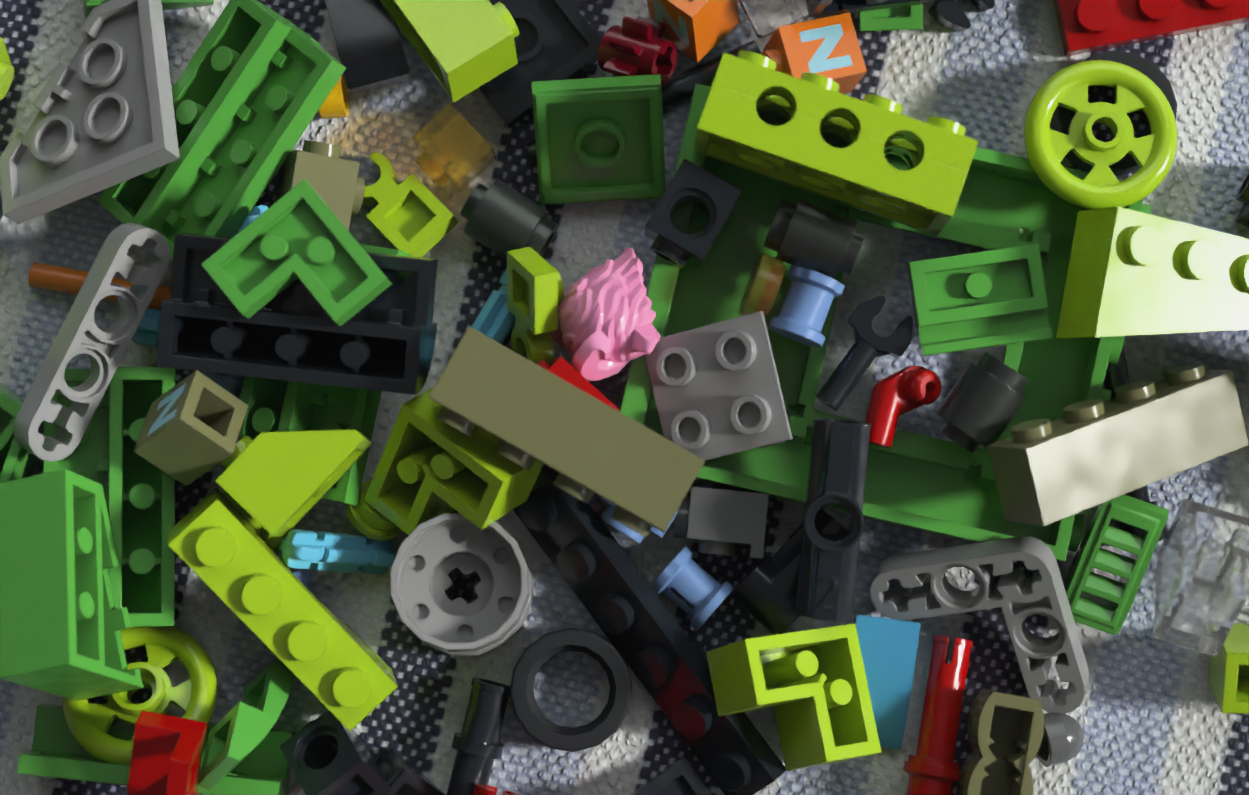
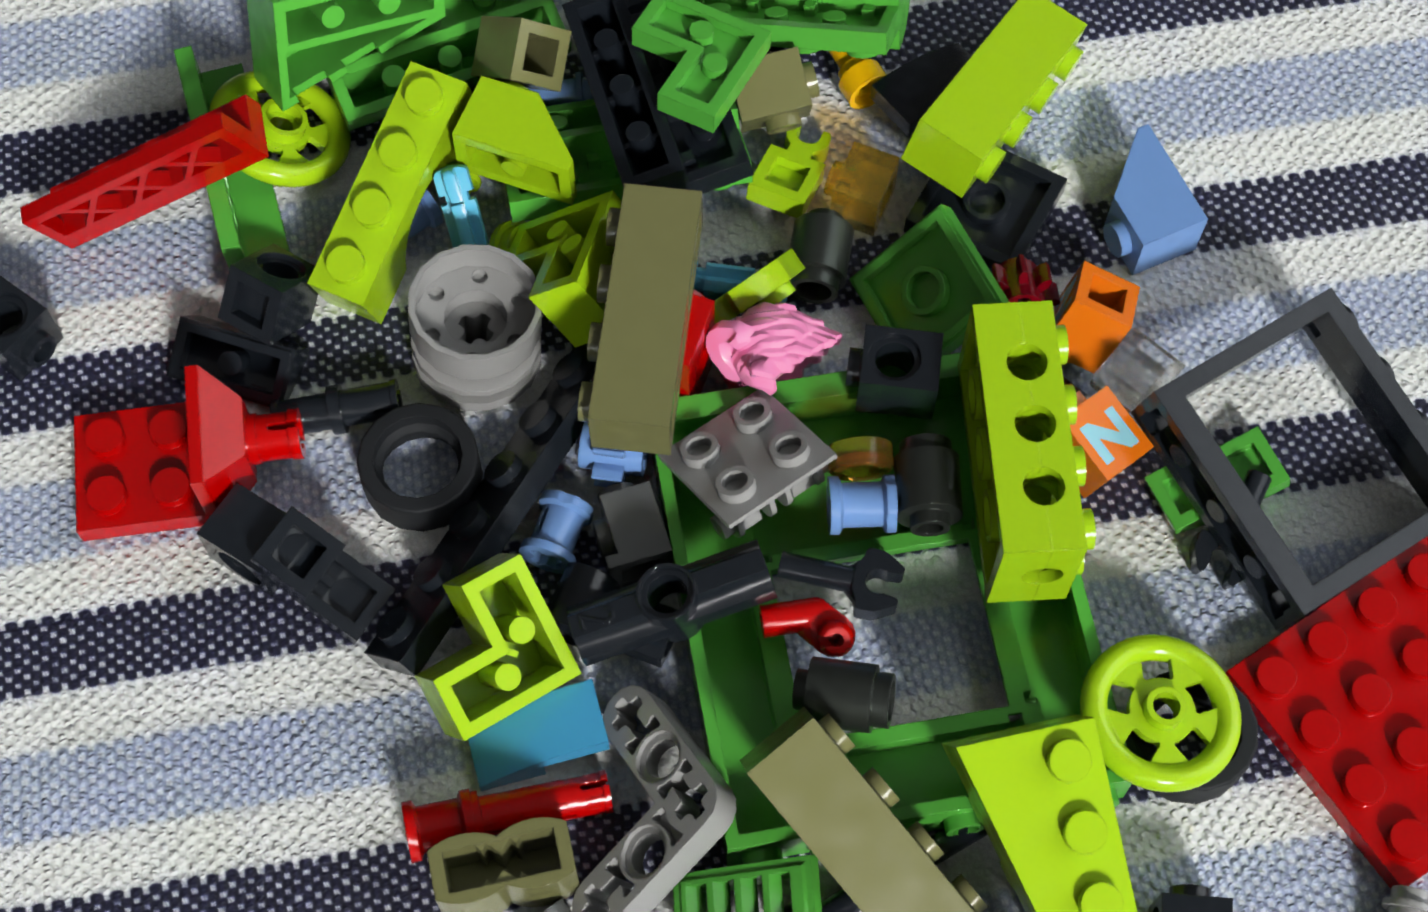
camera: 65 degrees right, 20 degrees down
(246, 723) = (274, 202): bright green slope -> none
(979, 300) = (943, 656): bright green plate -> none

